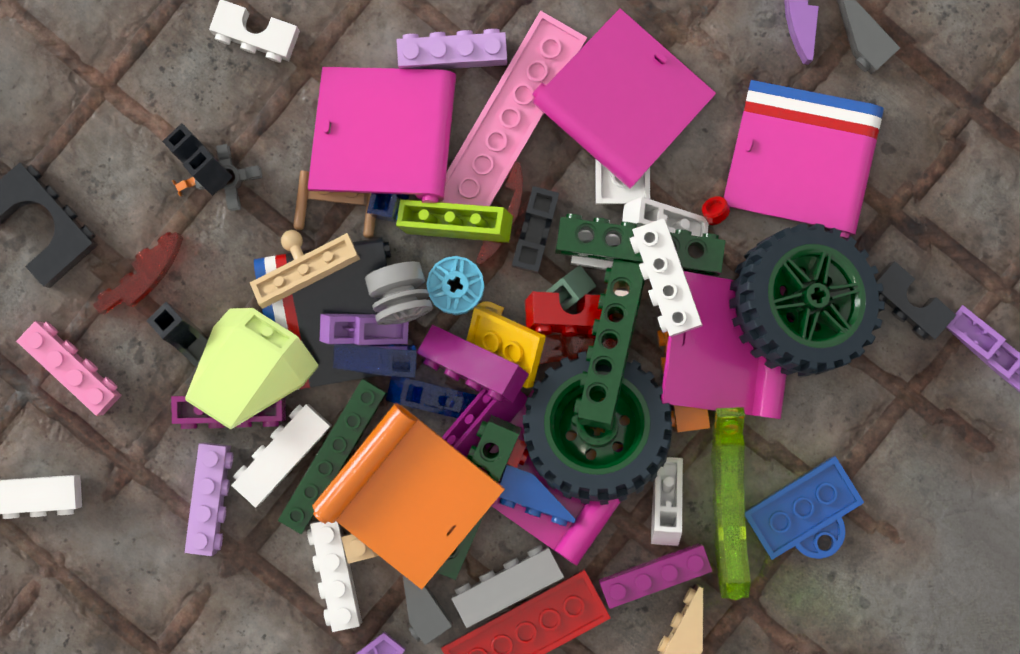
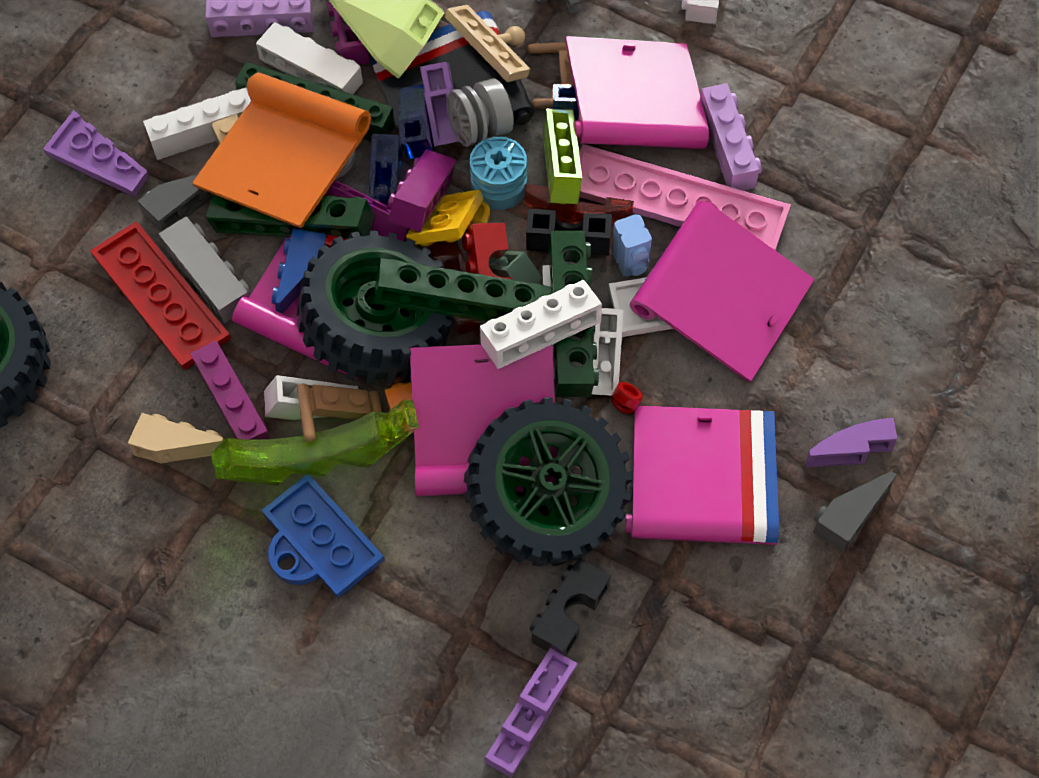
camera: 85 degrees right, 25 degrees down
(566, 173) = (631, 245): none -> light blue brick
(682, 478) = (333, 402): none -> medium nougat plate

